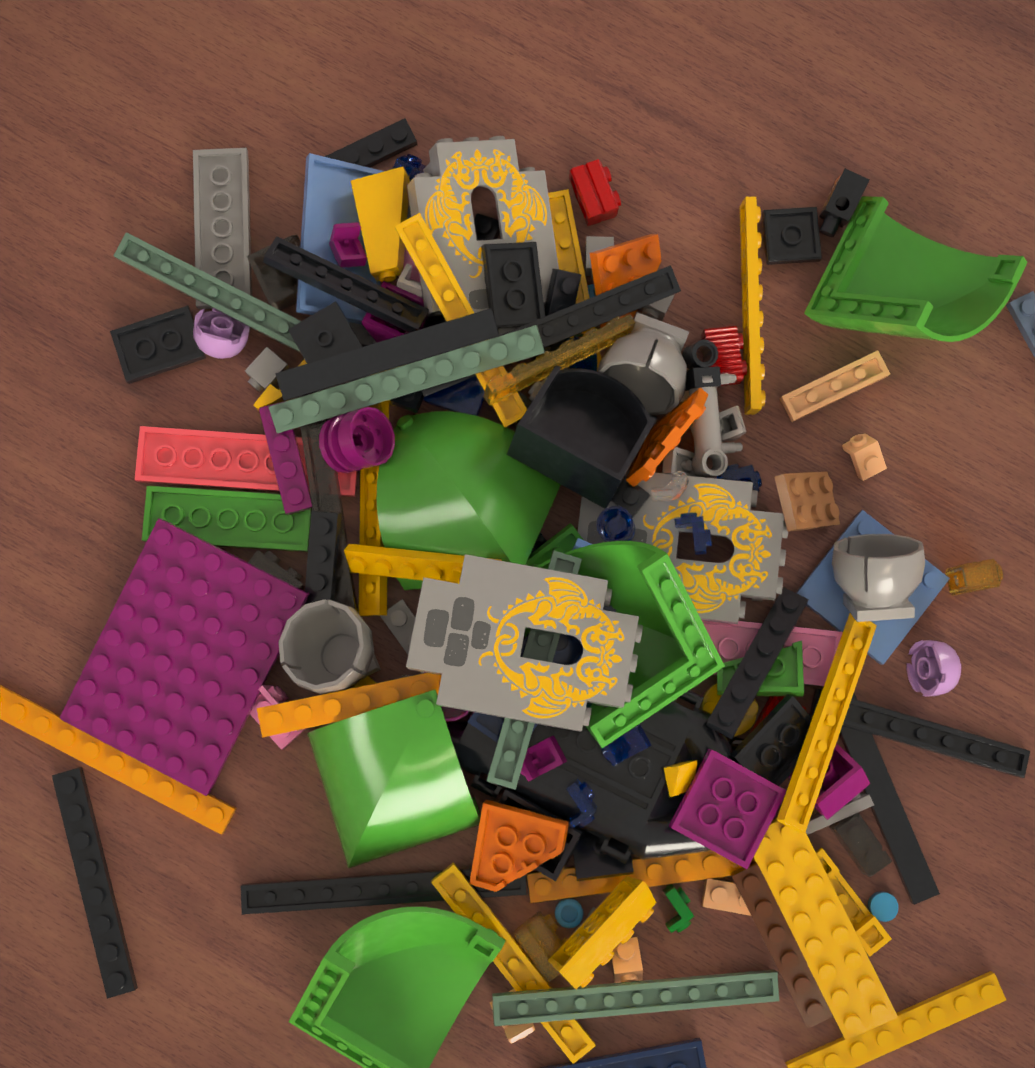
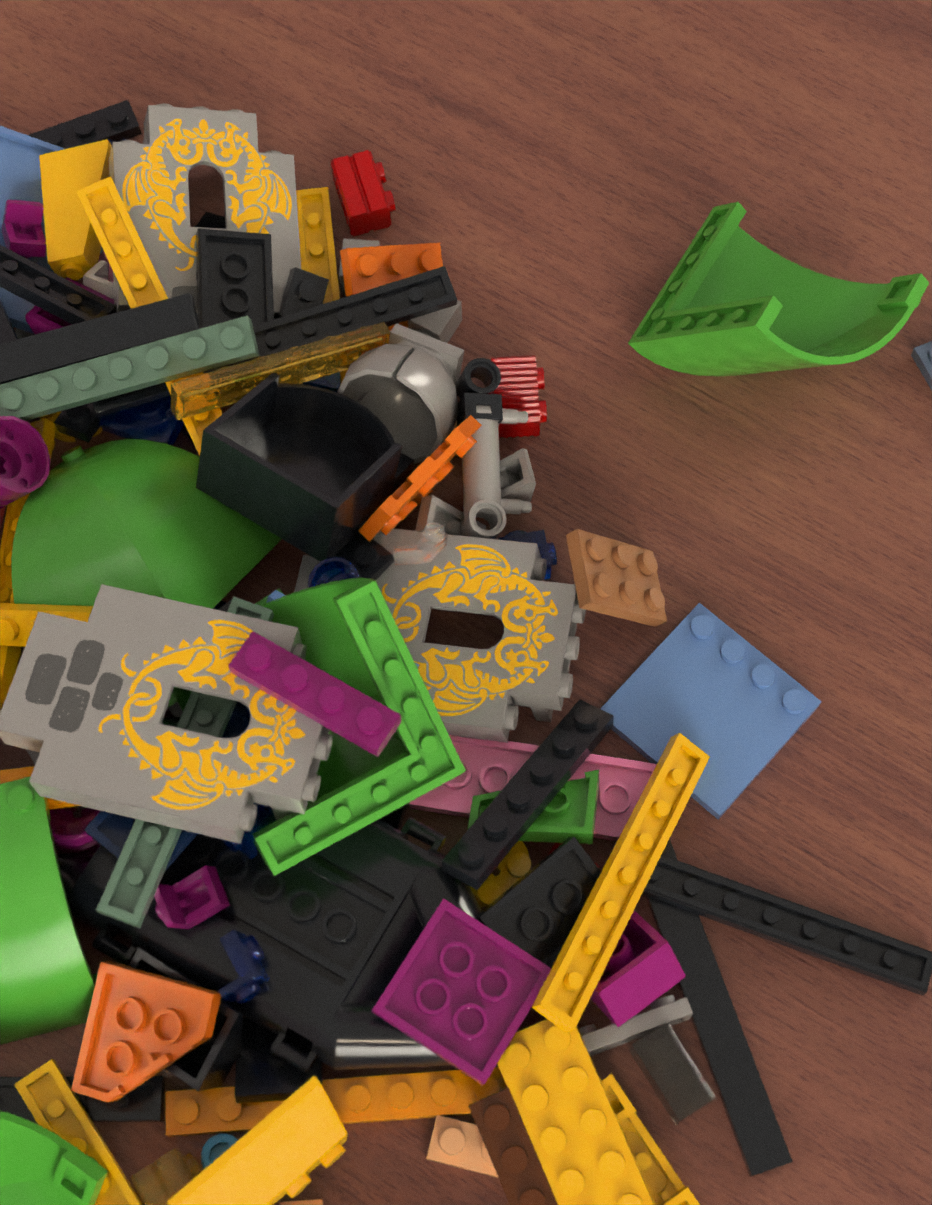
camera: 10 degrees right, 15 degrees down
(626, 745) = (316, 882): clear blue bracket -> none
(627, 630) = (315, 693): none -> magenta plate
(679, 901) = (390, 1146): green bracket -> none
(680, 777) = (394, 937): yellow slope -> none
(701, 536) = (455, 607): clear blue bracket -> none
(751, 295) = (560, 349): yellow plate -> none
(791, 235) = (620, 255): black plate -> none
(835, 386) = (668, 441): light nougat plate -> none
(846, 195) = (687, 210): black torso -> none
(865, 455) = (707, 532): light nougat bracket -> none
(878, 575) = (708, 677): light grey plate -> none
(883, 906) = (705, 1177): dark azure tile -> none
(933, 668) = (794, 820): lavender cylinder -> none
(974, 577) = (852, 694): clear yellow brick -> none

